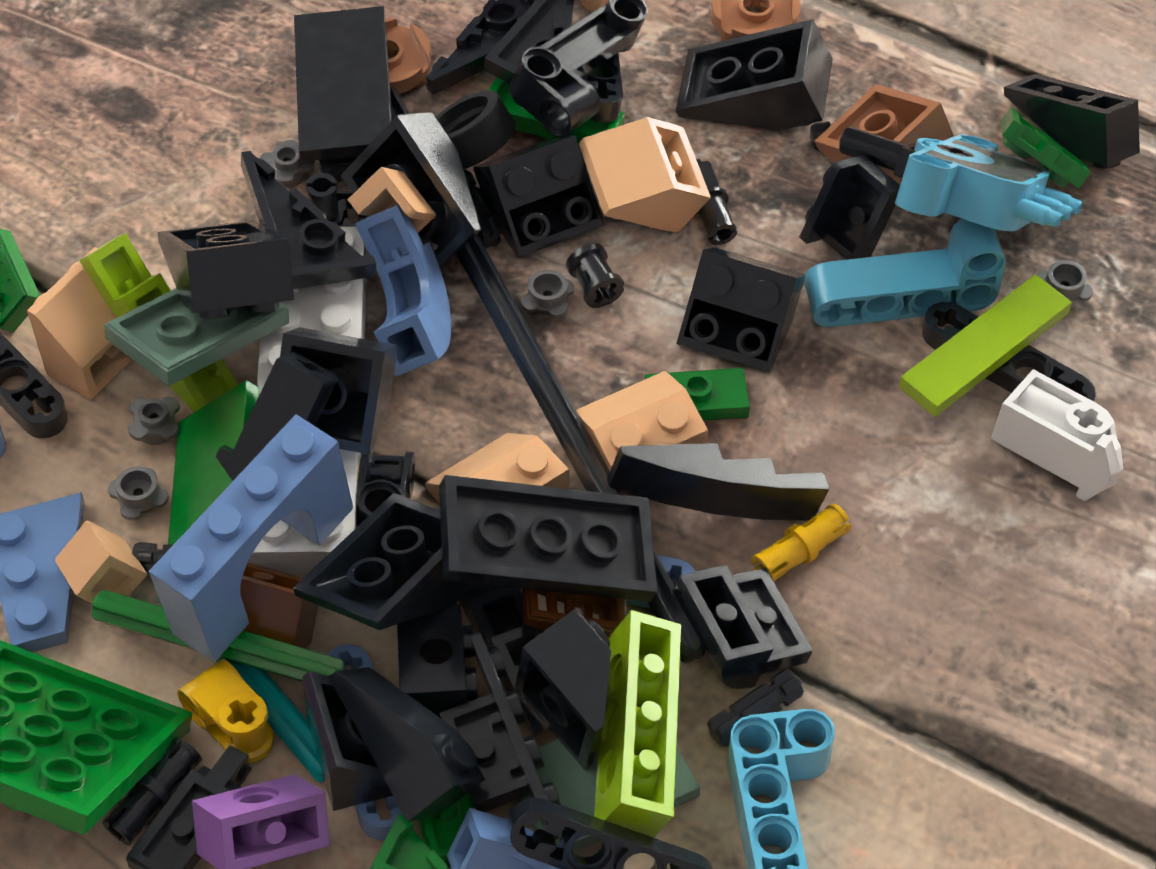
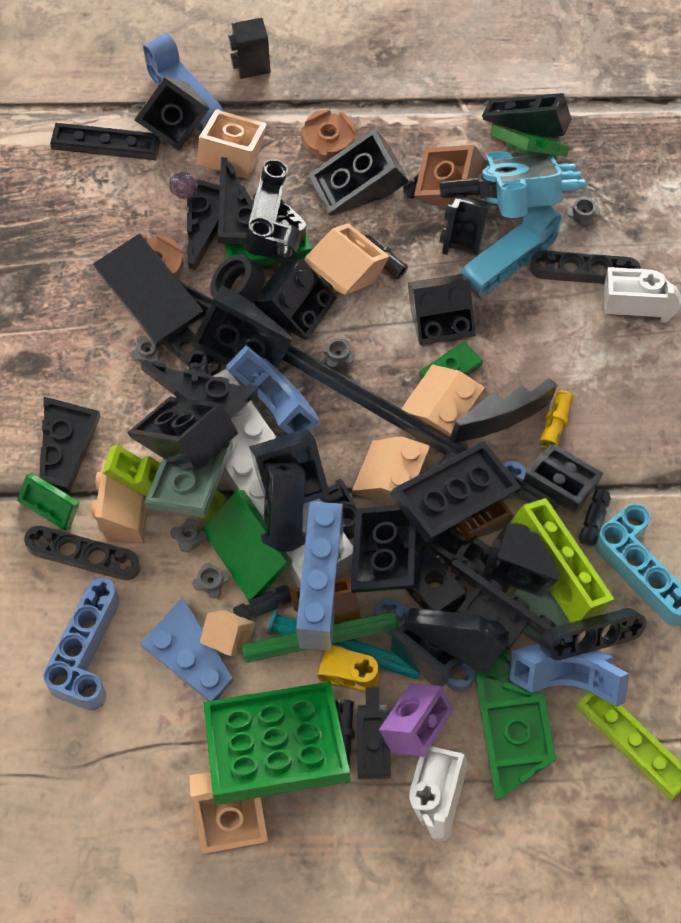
camera: 30 degrees left, 10 degrees up
(93, 213) = (66, 438): none -> black wing
(390, 188) = (234, 343): light nougat panel -> none
(595, 275) = (356, 329): black bush -> none
(984, 345) = (574, 266): lime tile -> none

